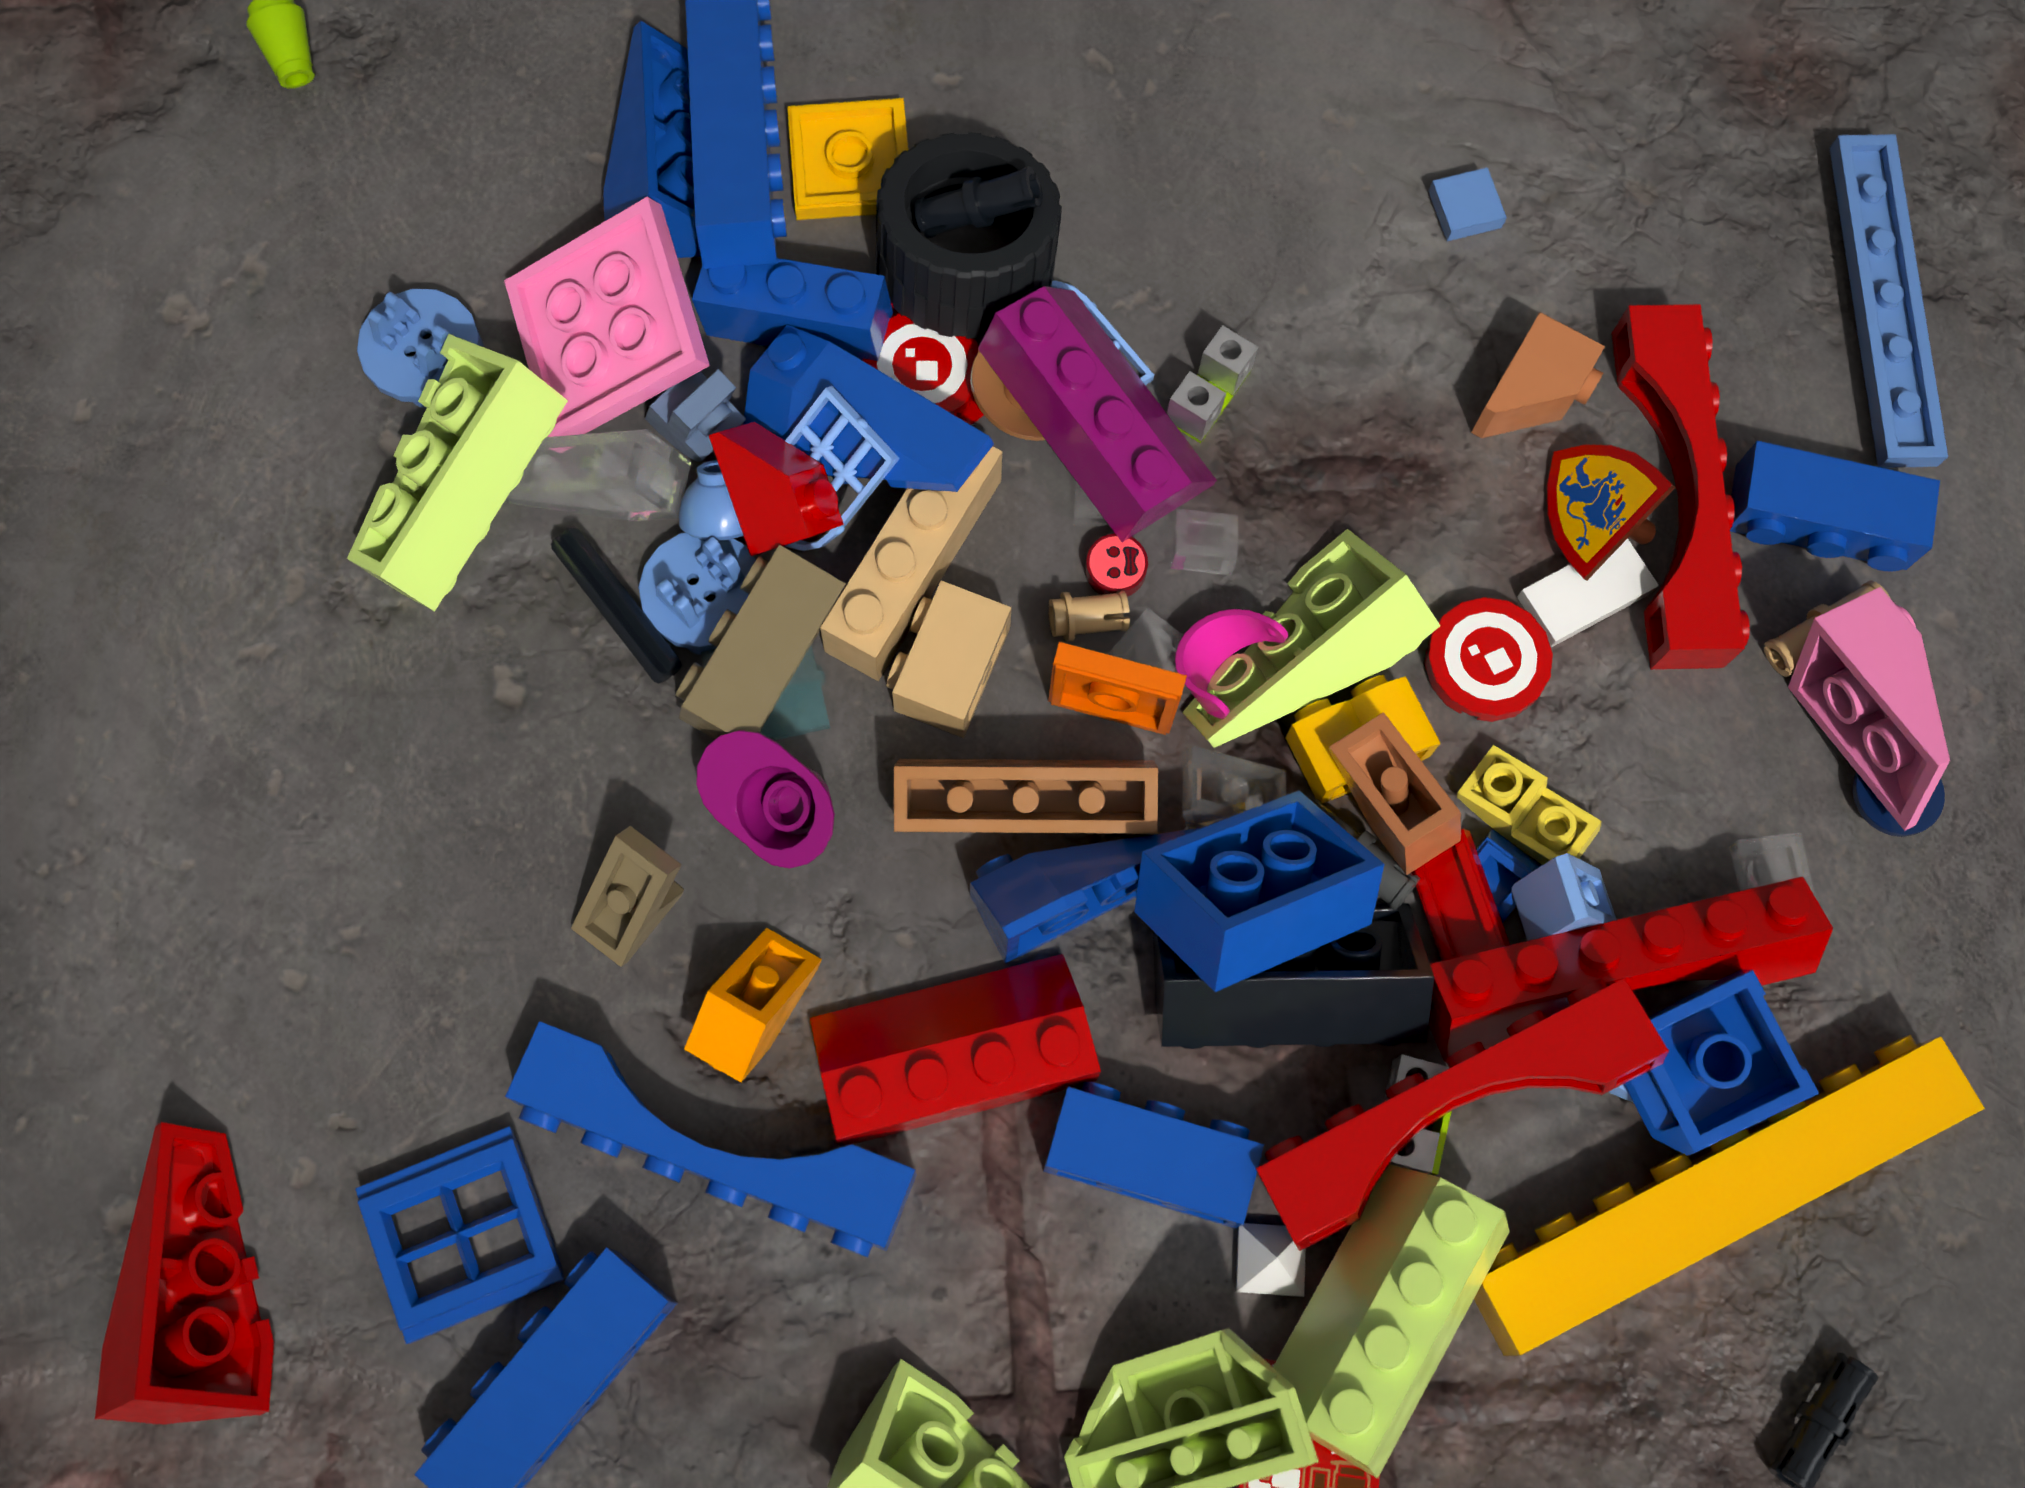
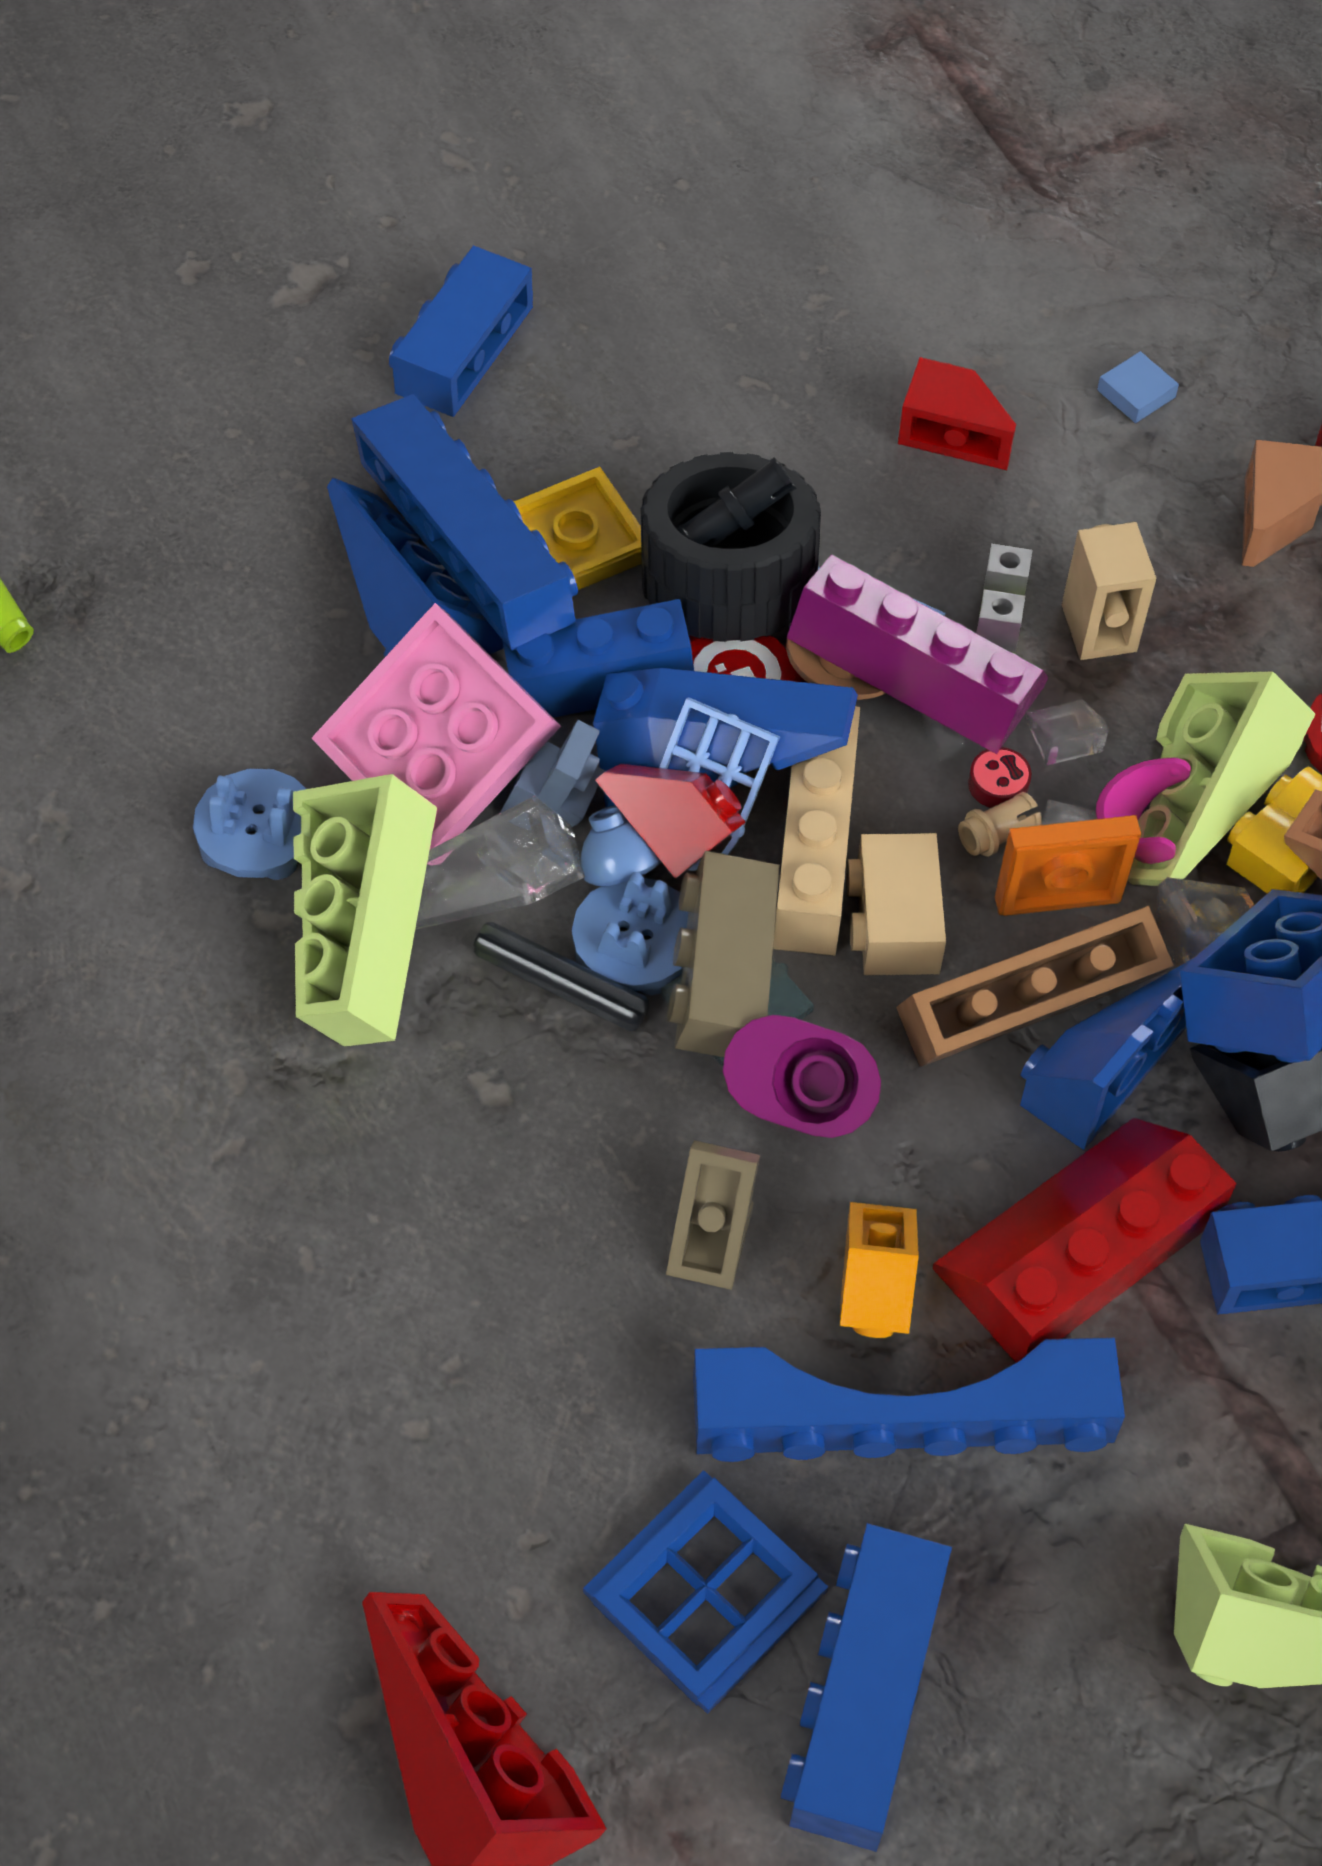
camera: 20 degrees left, 15 degrees down
(1264, 168) = (955, 416): none -> red slope
(1307, 417) = (1108, 590): none -> tan brick

